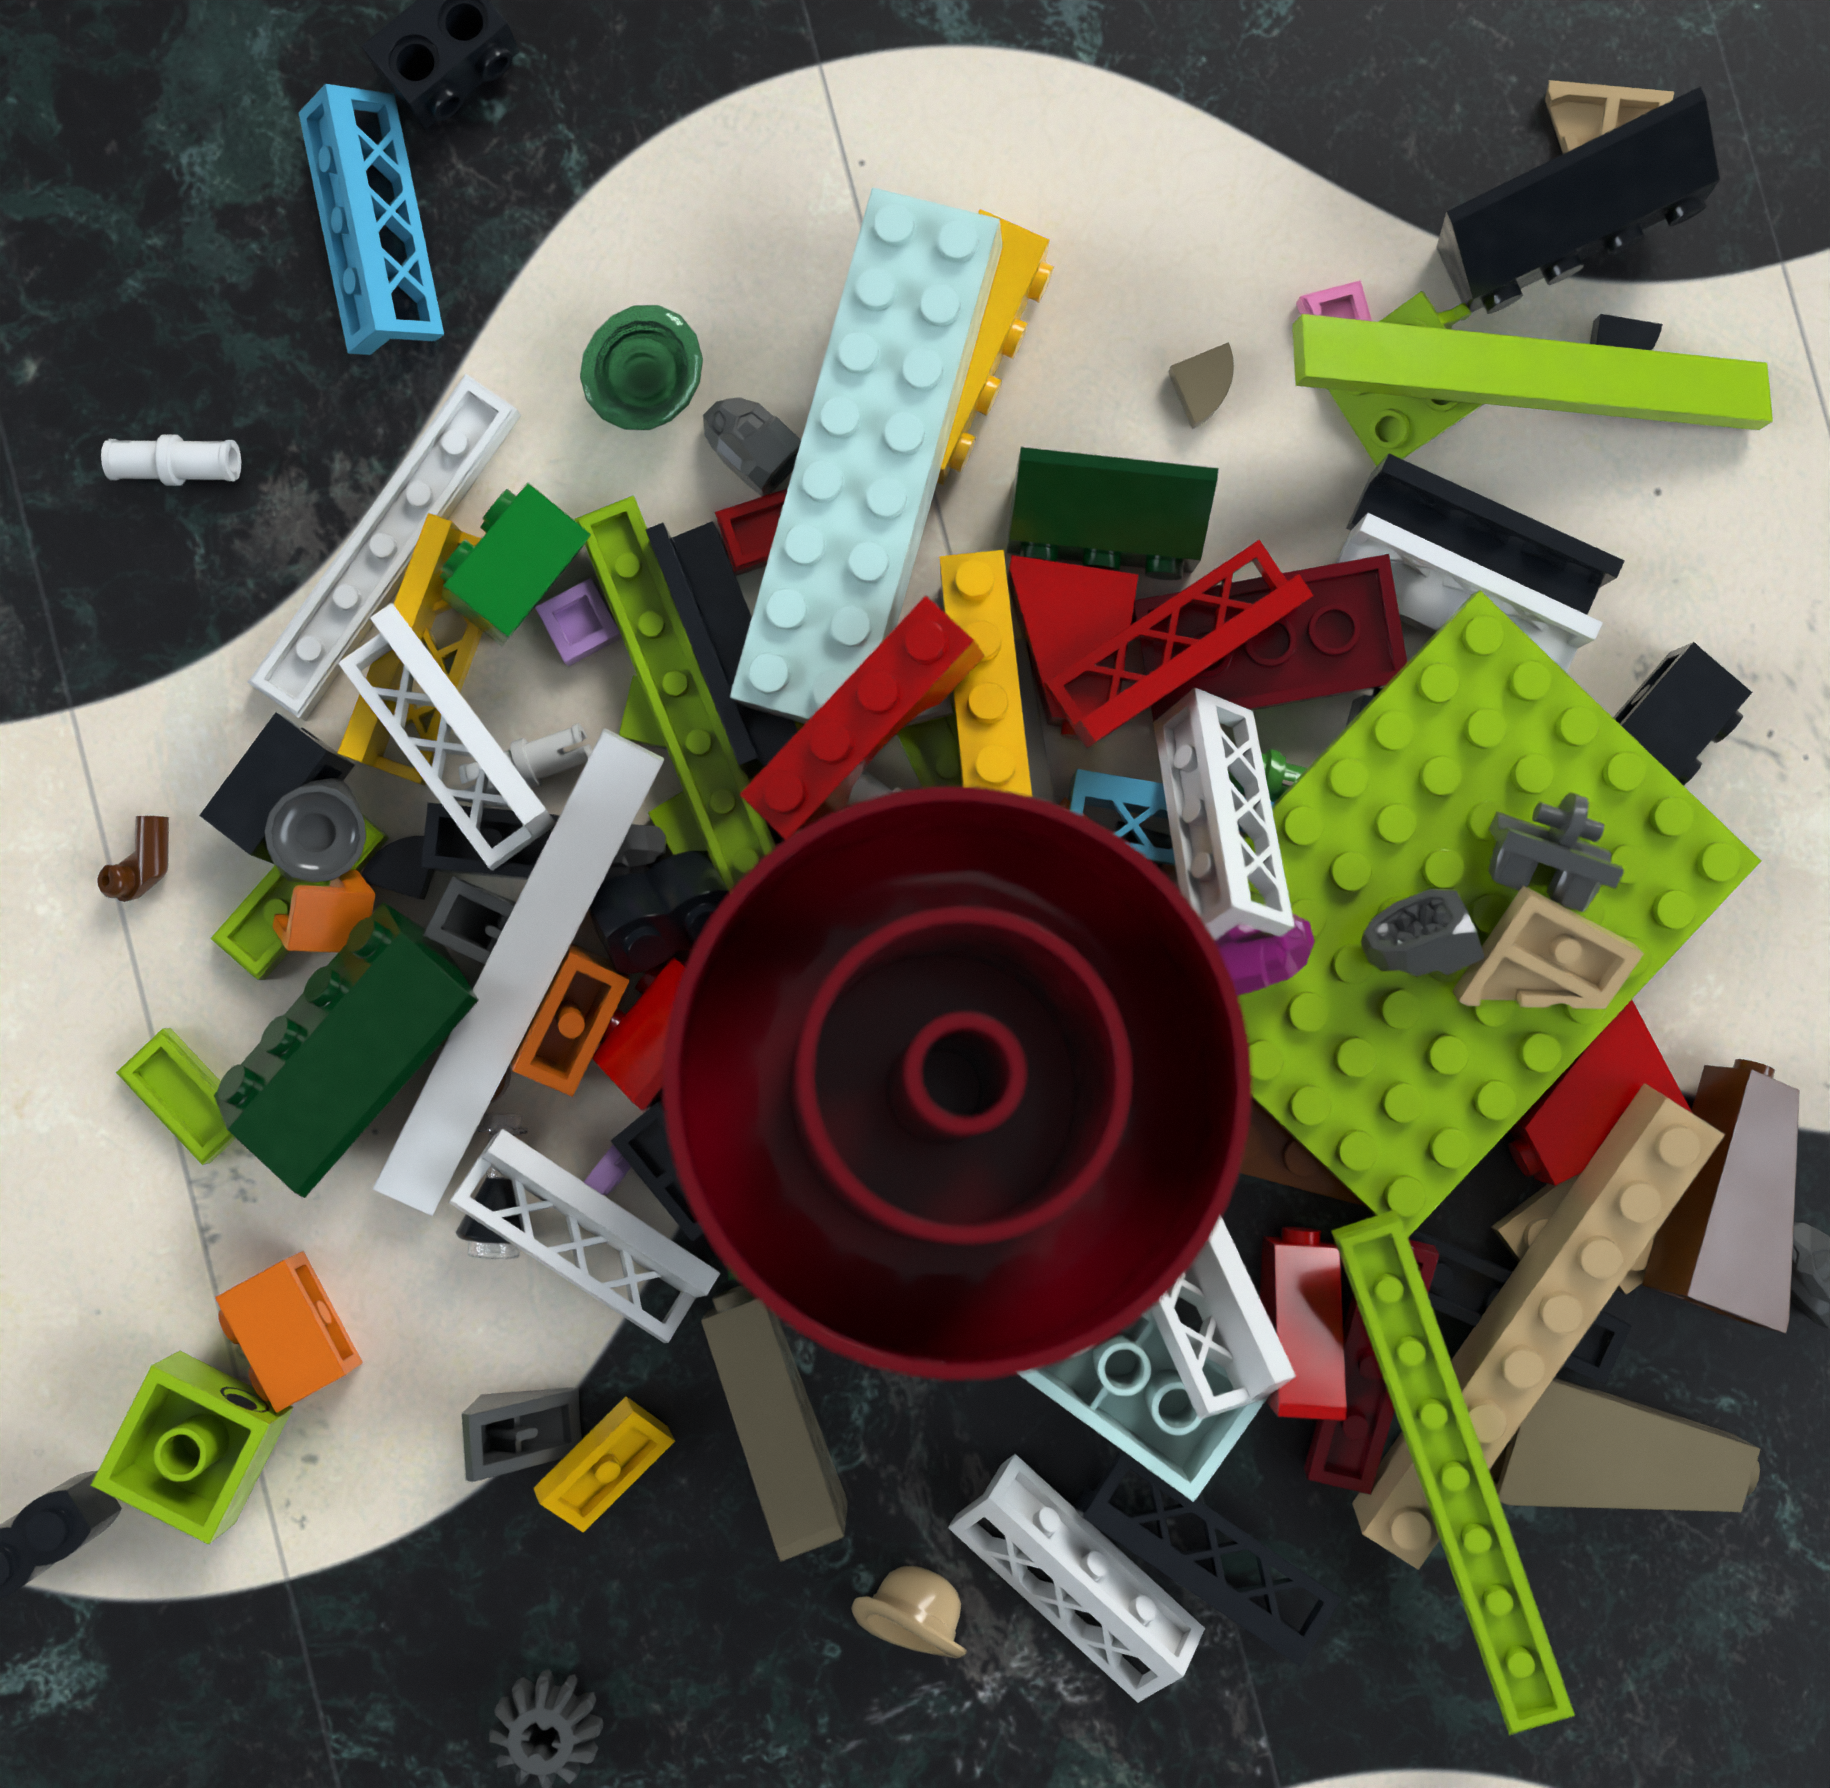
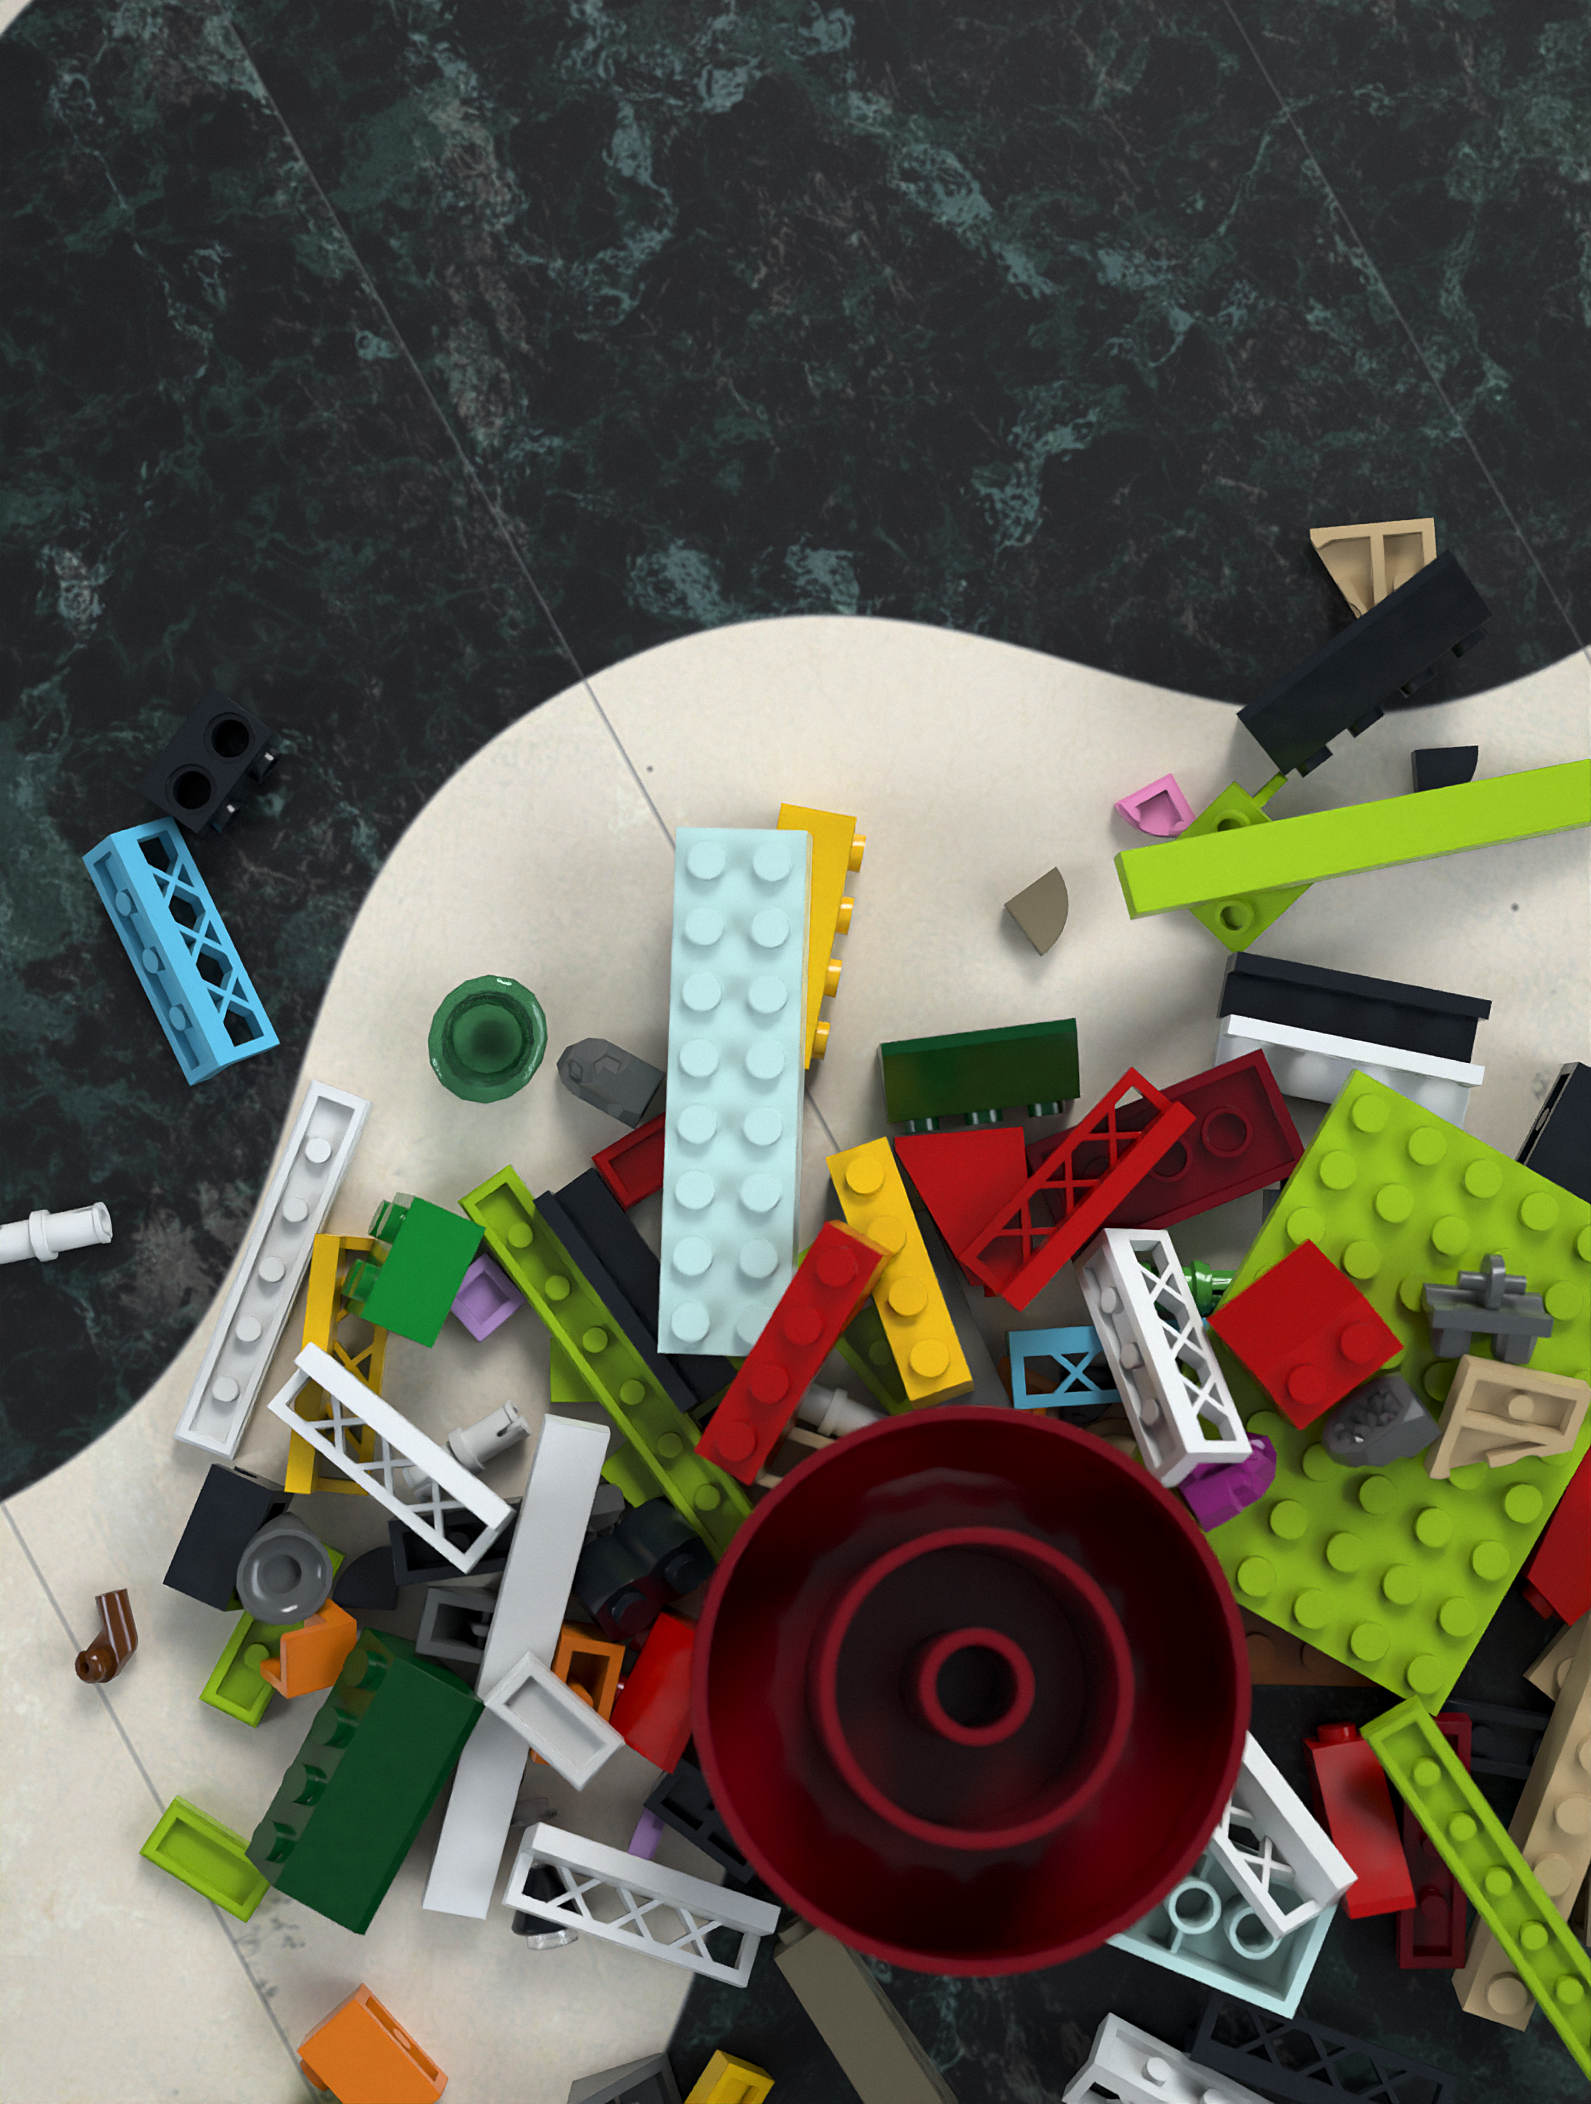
camera: 10 degrees left, 0 degrees up
(540, 1033) = (554, 1721): none -> white tile
(1371, 829) = (1304, 1334): none -> red slope

